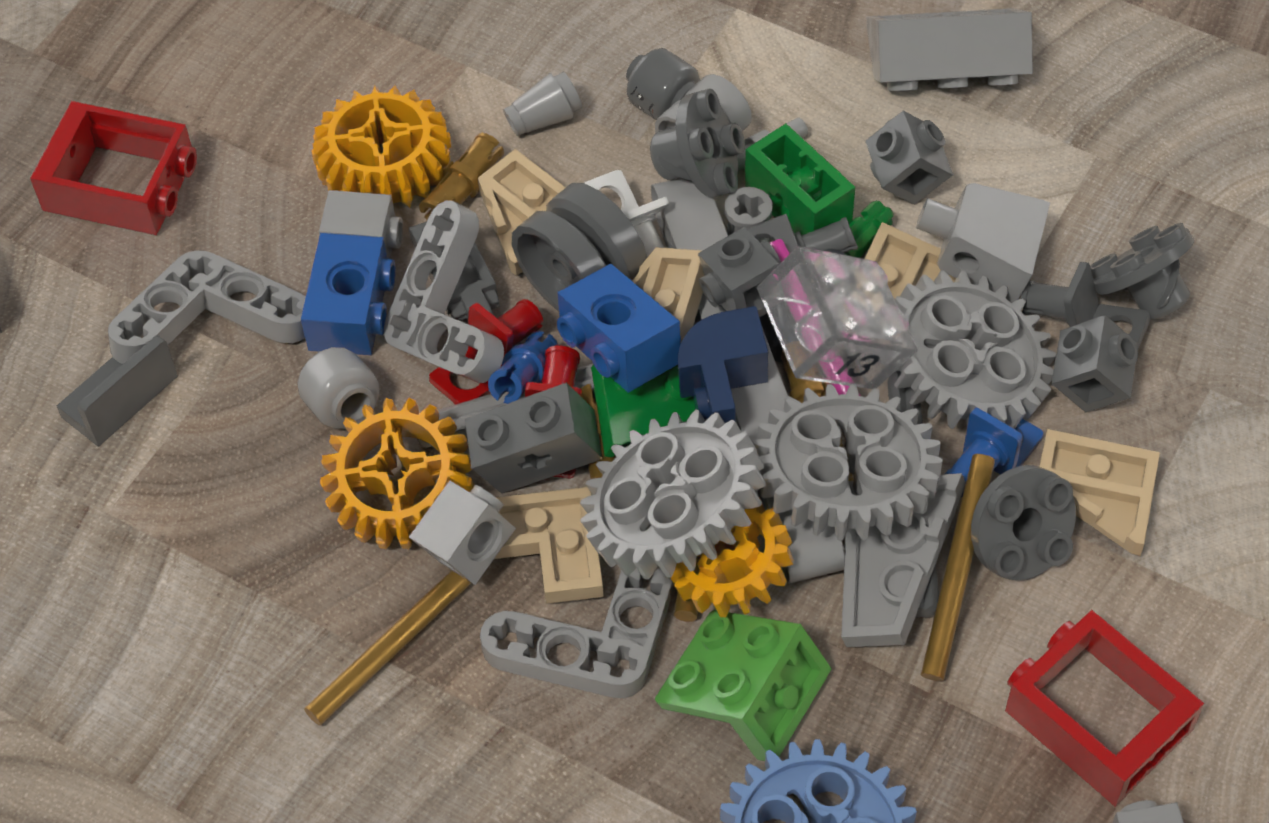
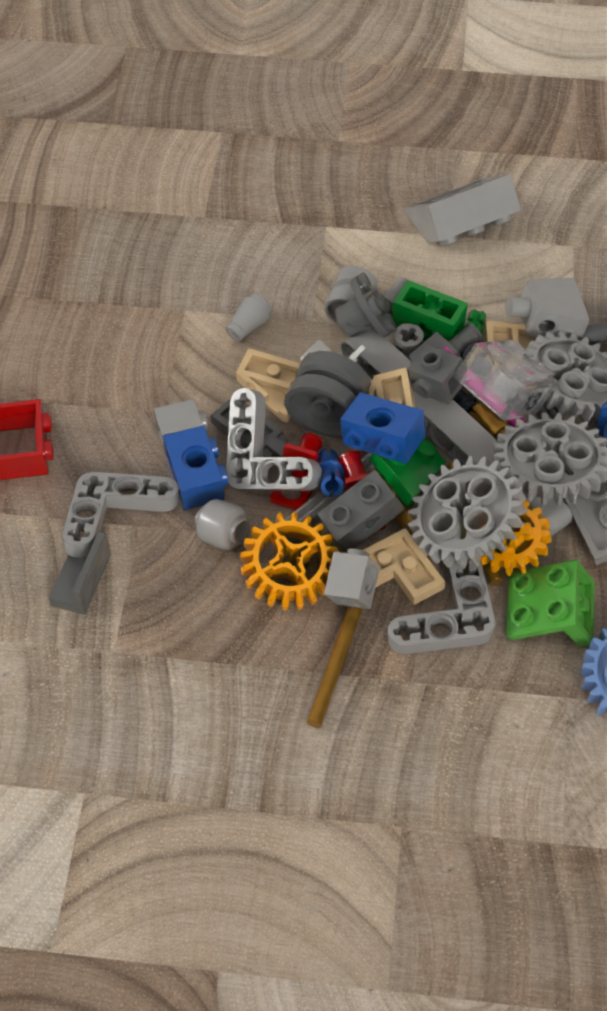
camera: 25 degrees left, 0 degrees up
(412, 139) = (158, 372): light orange gear -> none
(461, 177) = (223, 376): pearl gold pin -> none
(659, 81) = (312, 283): dark grey head -> none
(719, 356) = (449, 425): dark blue brick -> none
(909, 157) = (479, 278): dark grey brick -> none

